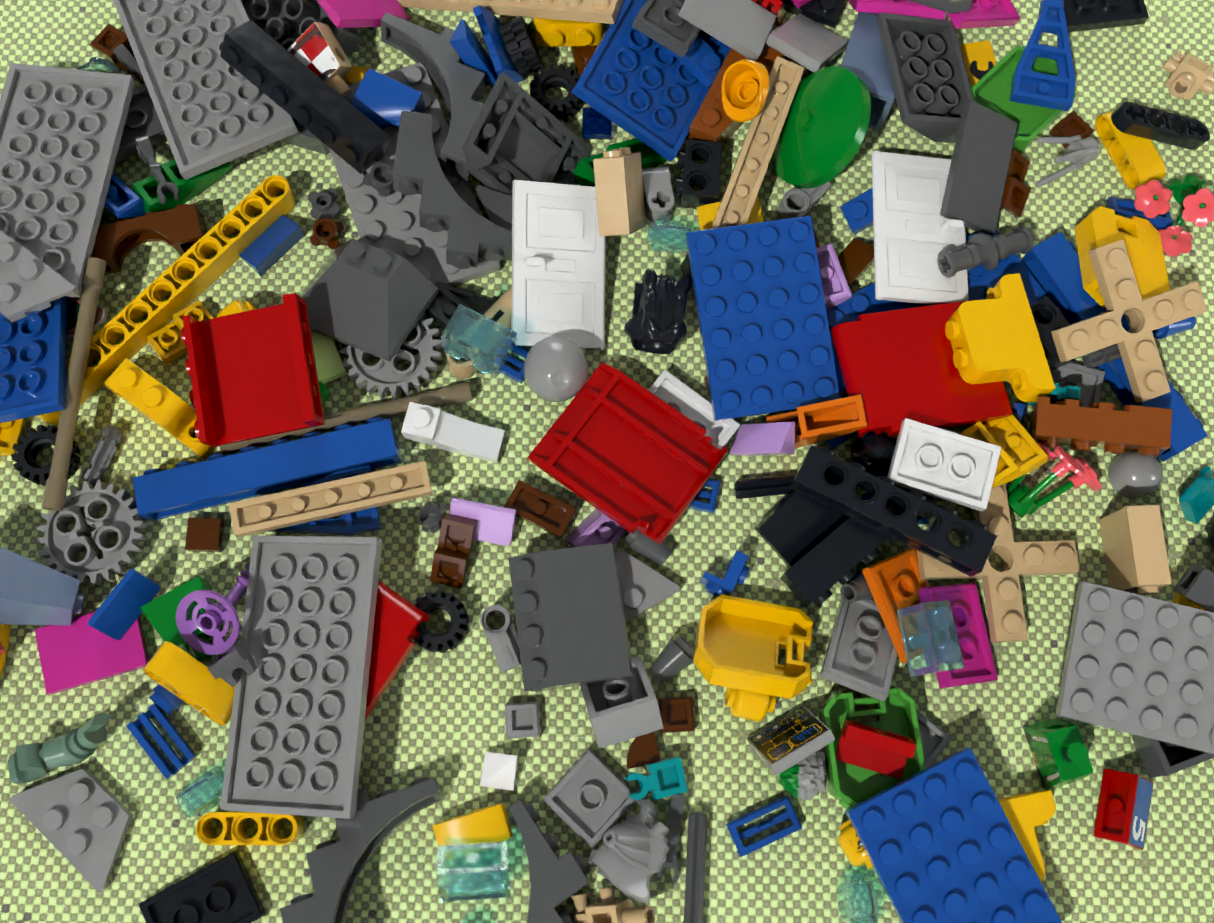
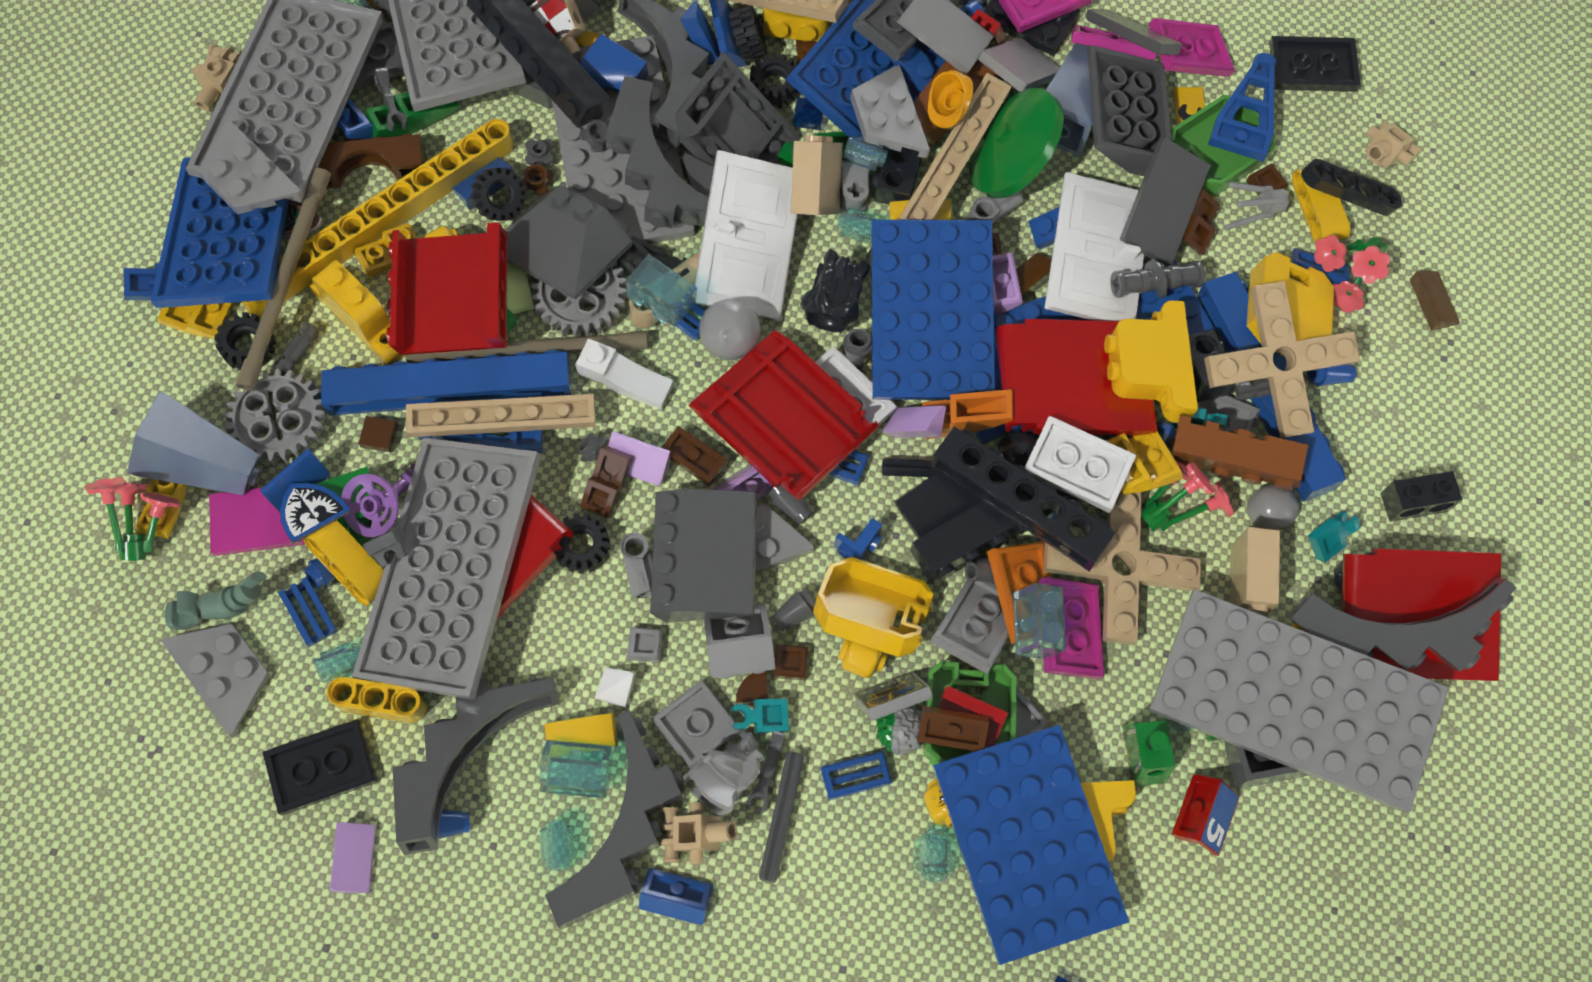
camera: 10 degrees right, 5 degrees down
(143, 636) = (309, 509): none -> shield
(270, 252) = (516, 194): none -> black tyre
(665, 158) = (864, 153): none -> clear light blue brick
(684, 114) = (888, 113): none -> light grey wing
(691, 367) = (857, 347): none -> dark grey cone
(861, 770) = (952, 728): none -> reddish brown plate

